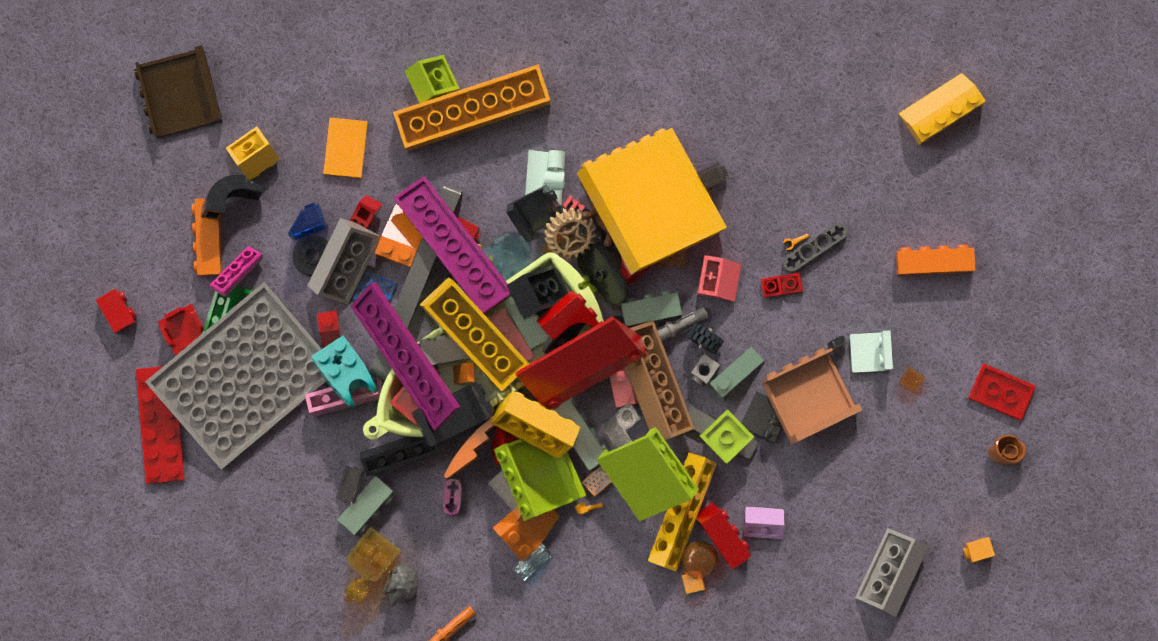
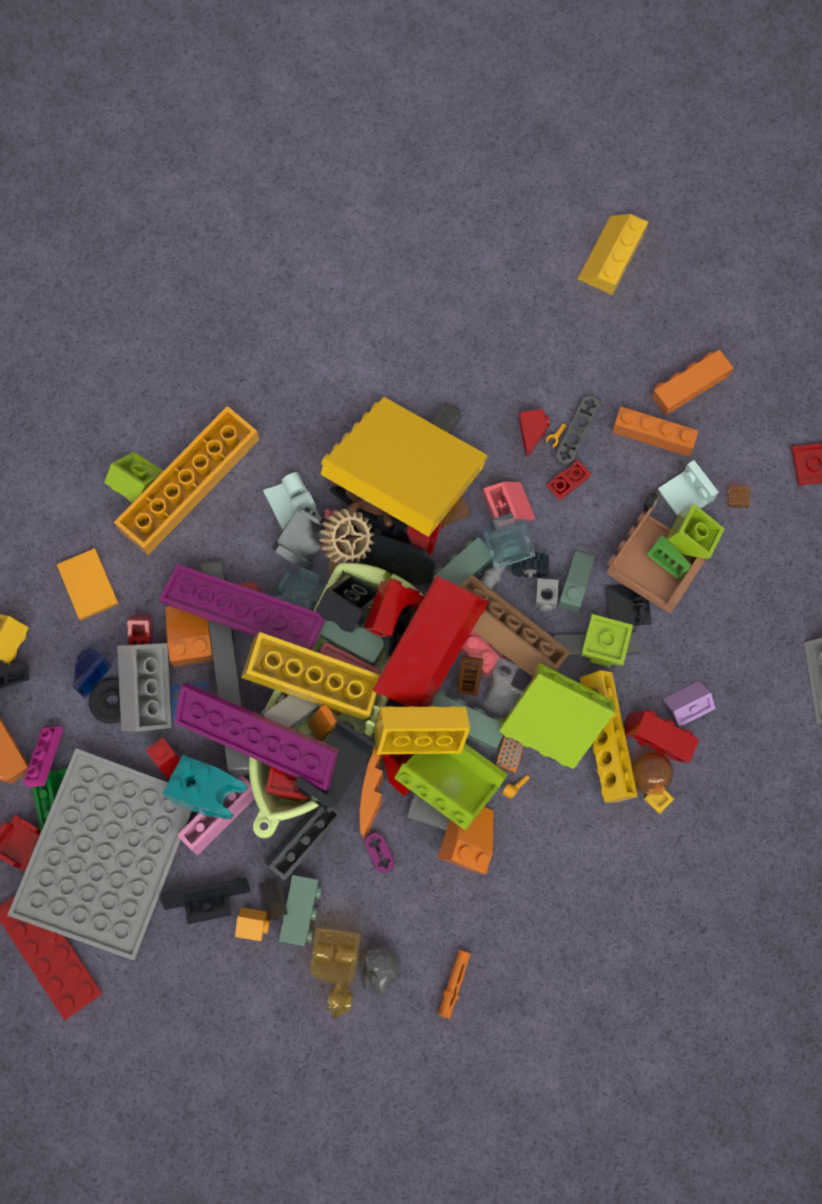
camera: 30 degrees left, 10 degrees down
(300, 457) = (206, 901): none -> black bracket
(324, 494) = (252, 924): none -> light orange brick
(533, 562) = (492, 879): clear light blue plate -> none
(600, 404) = (466, 687): none -> reddish brown slope
(697, 312) = (510, 541): none -> clear light blue panel
(778, 225) = (533, 428): none -> red slope
(818, 398) = (660, 558): none -> bright green slope
(852, 391) = (695, 533): none -> lime slope
(876, 286) = (655, 431): none -> orange brick

